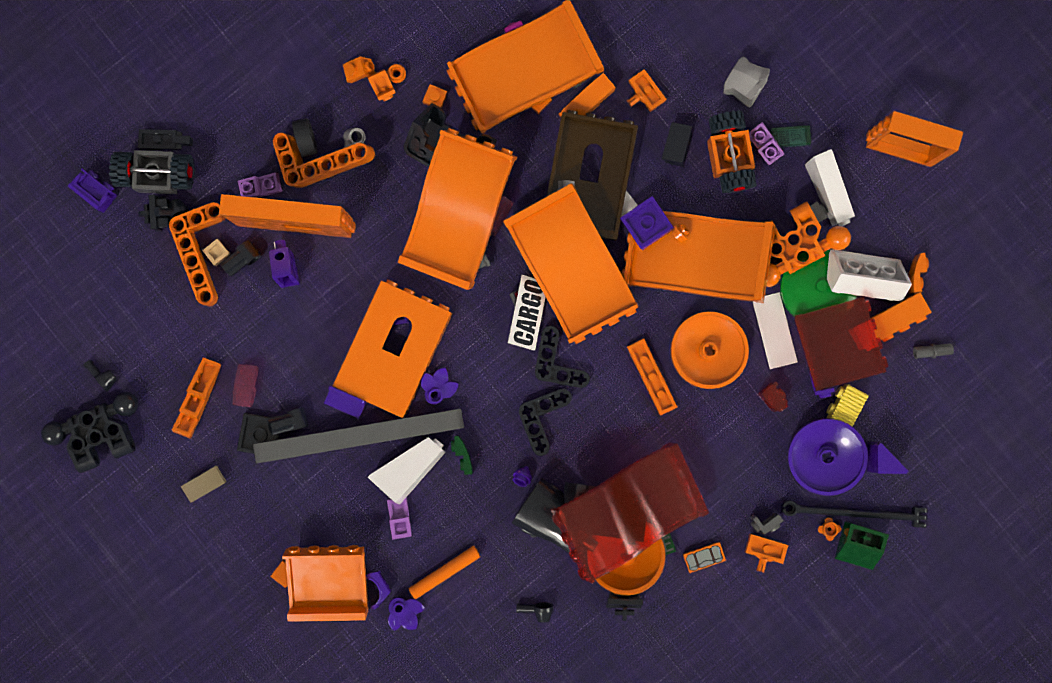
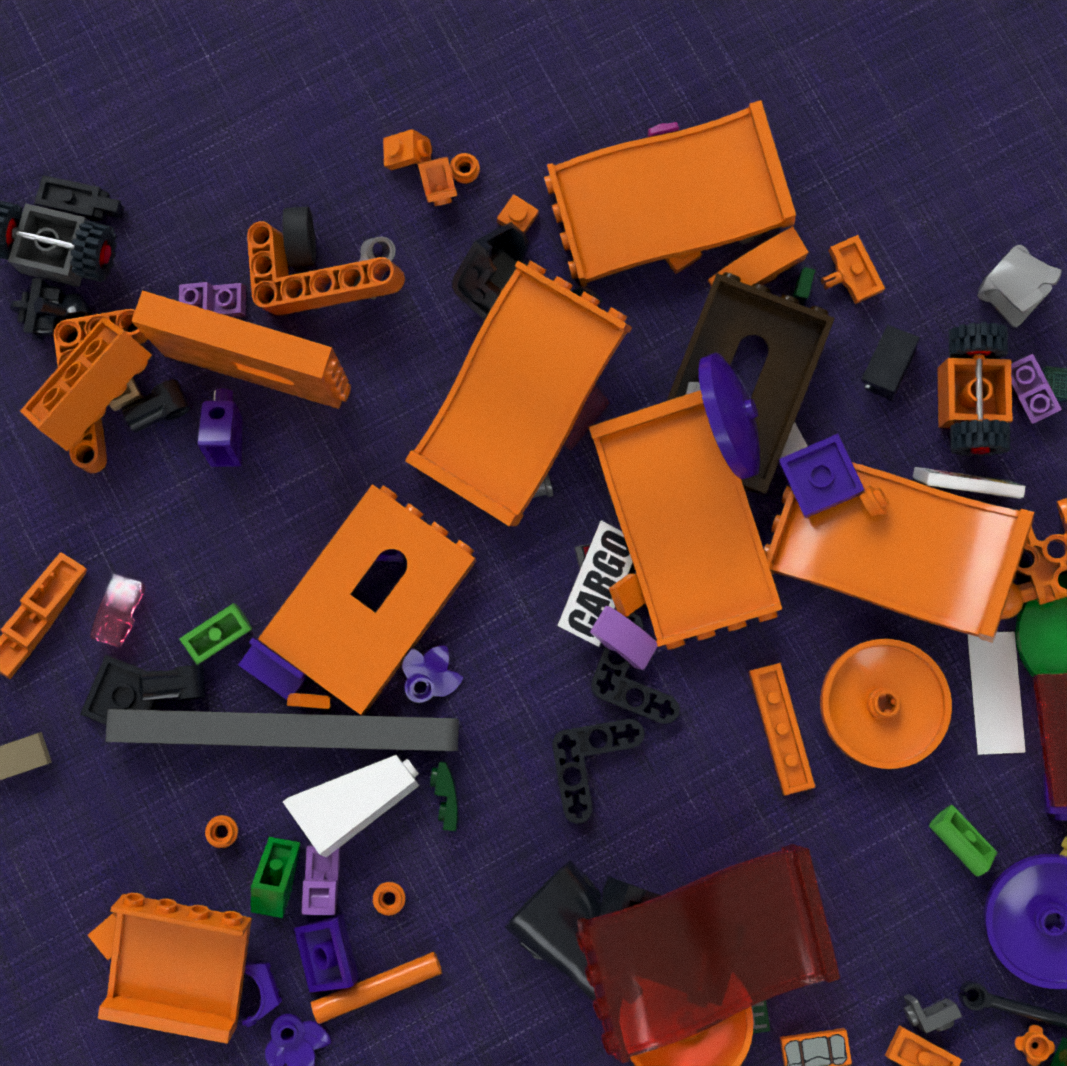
camera: 10 degrees right, 5 degrees down
(196, 254) = (86, 384): none -> orange slope
(307, 387) = (216, 633): none -> bright green brick
(331, 506) = (212, 835): none -> orange plate
(370, 416) = (308, 701): none -> orange tile
(372, 521) = (274, 877): none -> green slope
(411, 559) = (327, 954): none -> dark purple slope
(437, 525) = (378, 898): none -> orange plate
(522, 477) = (537, 852): dark purple plate -> none
(546, 316) = (627, 594): none -> orange tile
(549, 342) = (625, 637): none -> medium lavender slope
(585, 198) = (730, 415): none -> dark purple dish
(616, 110) = (803, 285): none -> dark green tile
(736, 209) = (969, 482): none -> white tile
(769, 420) = (963, 840): none -> bright green brick
(774, 397) = (978, 803): clear red brick -> none

